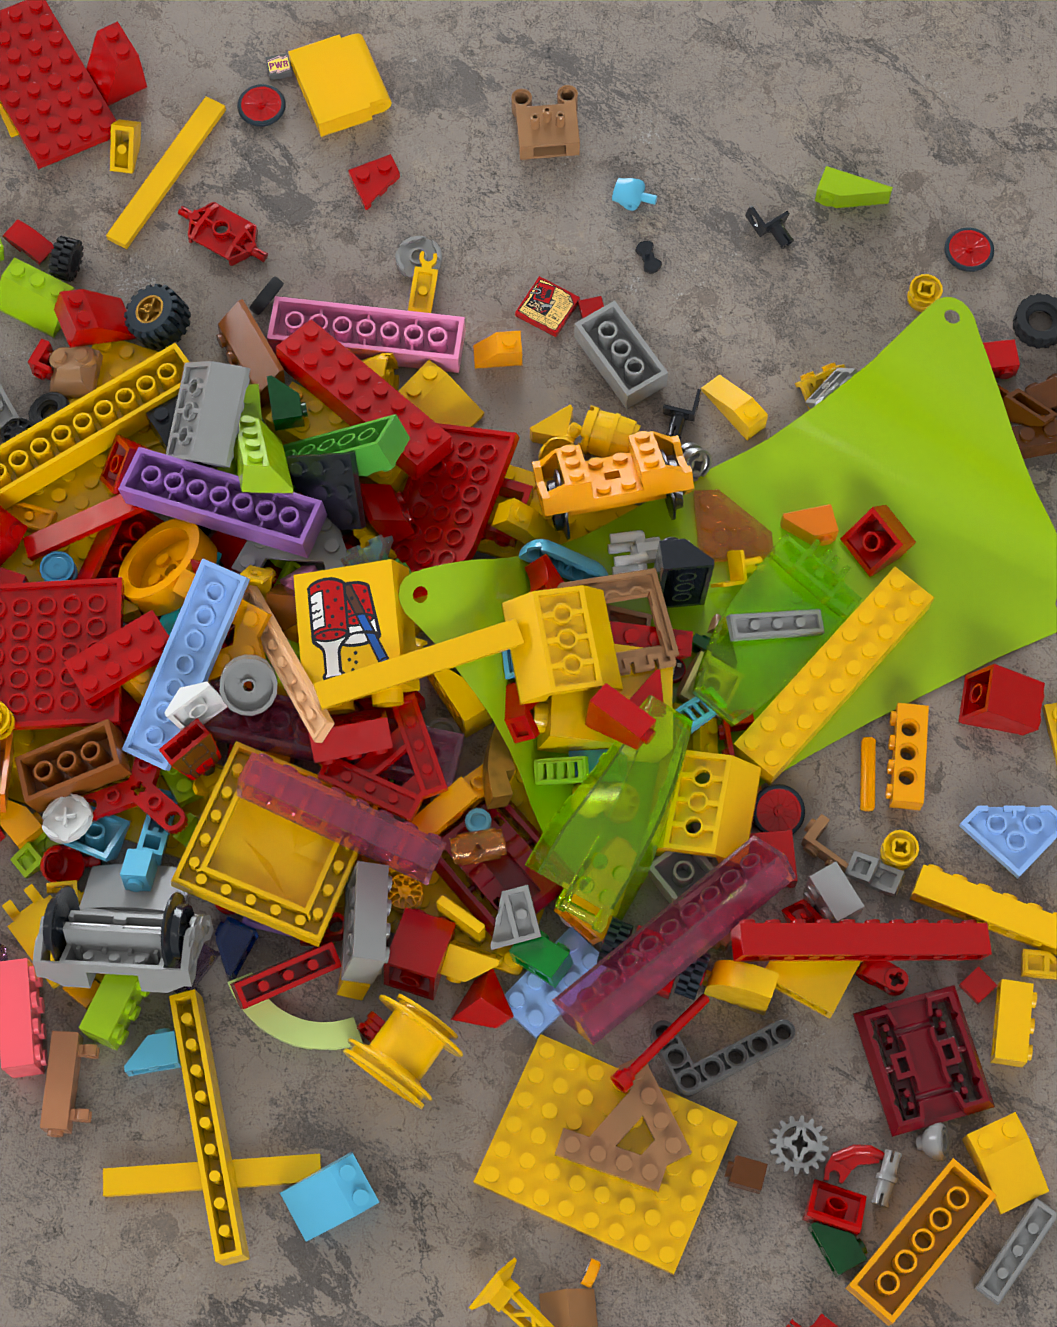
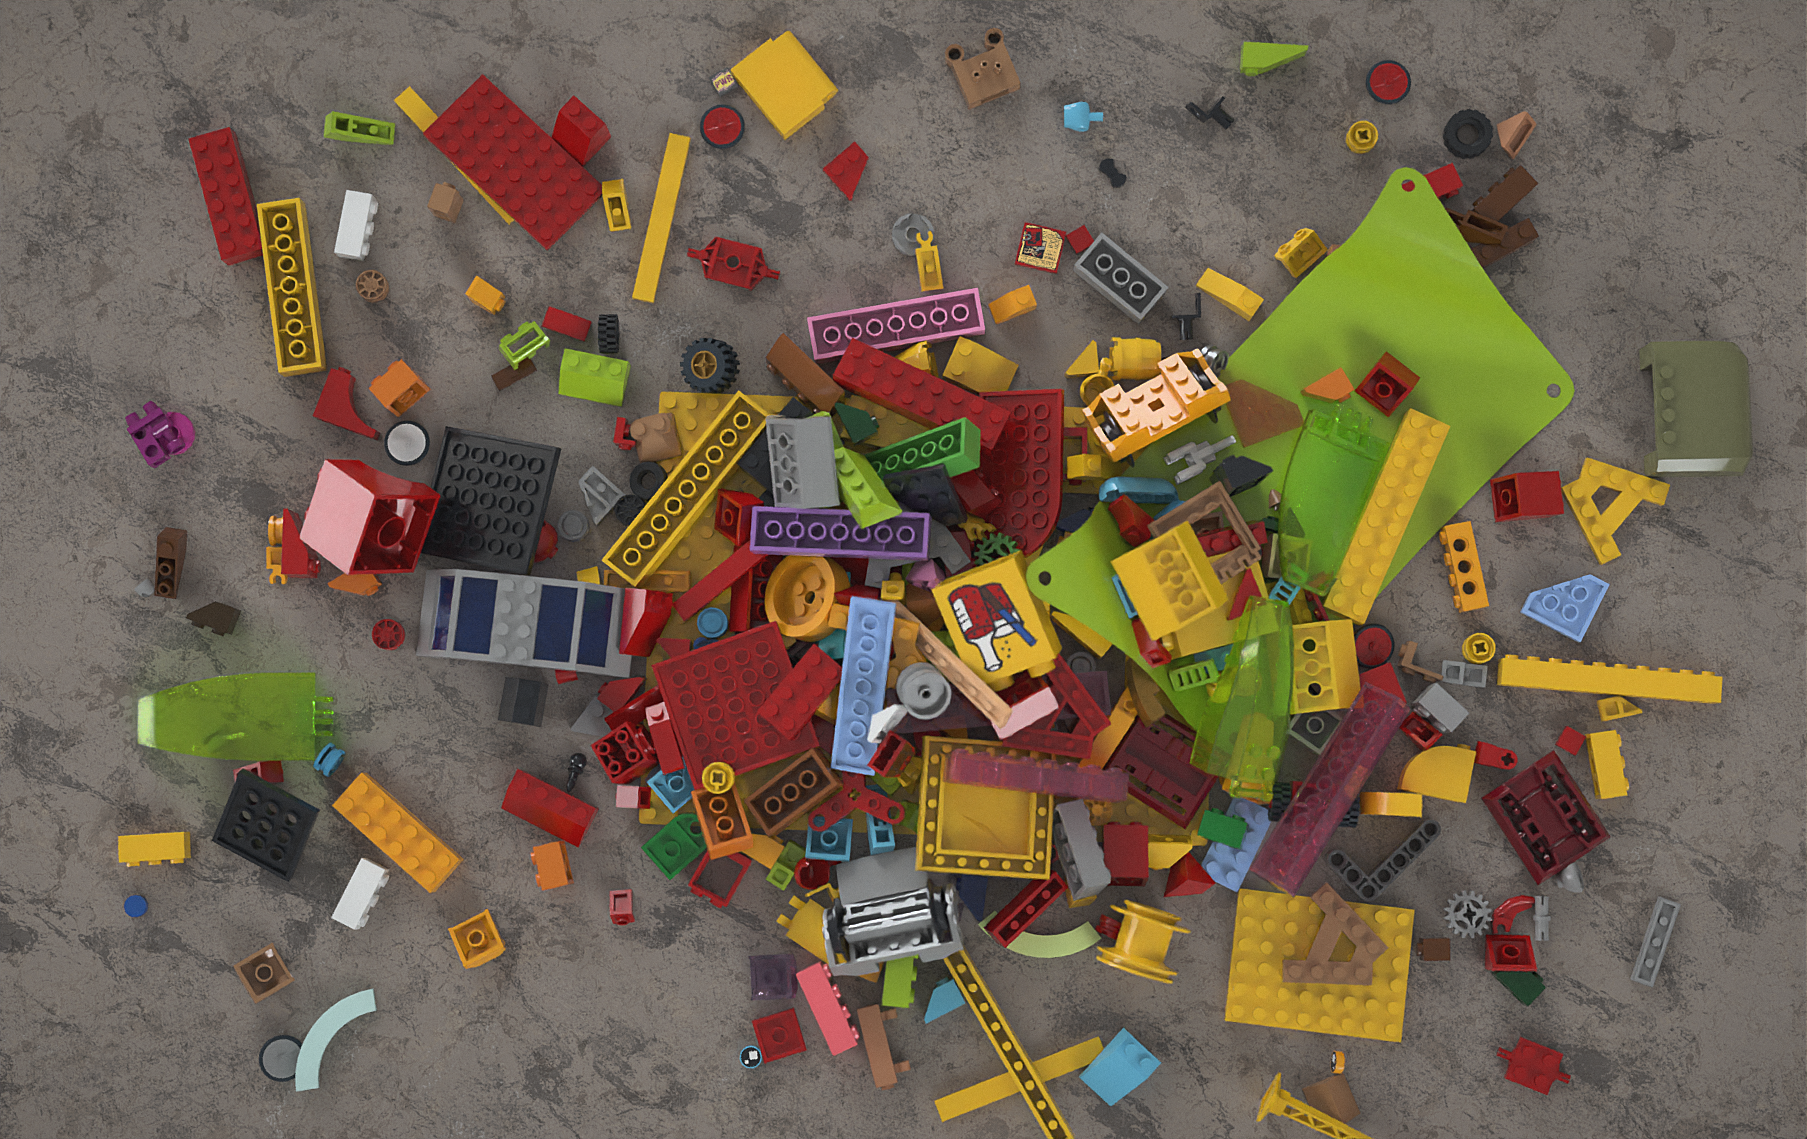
camera: 15 degrees left, 15 degrees up
(67, 818) = (806, 837): white tile -> none
(91, 318) = (654, 385): red slope -> none
(139, 870) = (881, 863): medium azure brick -> none
(266, 295) = (796, 316): black tyre -> none
(376, 551) = (978, 548): clear light blue slope -> none
(418, 664) = (1064, 639): yellow tile -> none
(464, 921) = (1152, 821): yellow tile -> none
(477, 820) = (1139, 737): medium azure tile -> none
(491, 843) = (1140, 765): clear orange piece -> none
(515, 918) = (1196, 809): light grey wing -> none
(619, 718) = (1238, 630): red slope -> none
(624, 1078) = (1321, 907): red piece -> none
(738, 568) = (1280, 448): yellow bracket -> none
(775, 625) = (1326, 490): light grey tile -> none
(833, 382) = (1311, 255): light grey wing -> none
(860, 940) = (1474, 742): red brick -> none
(868, 759) = (1435, 591): light orange axle -> none
(921, 1242) = (1583, 960): light orange brick -> none
(1006, 1162) = (1629, 876): yellow slope -> none

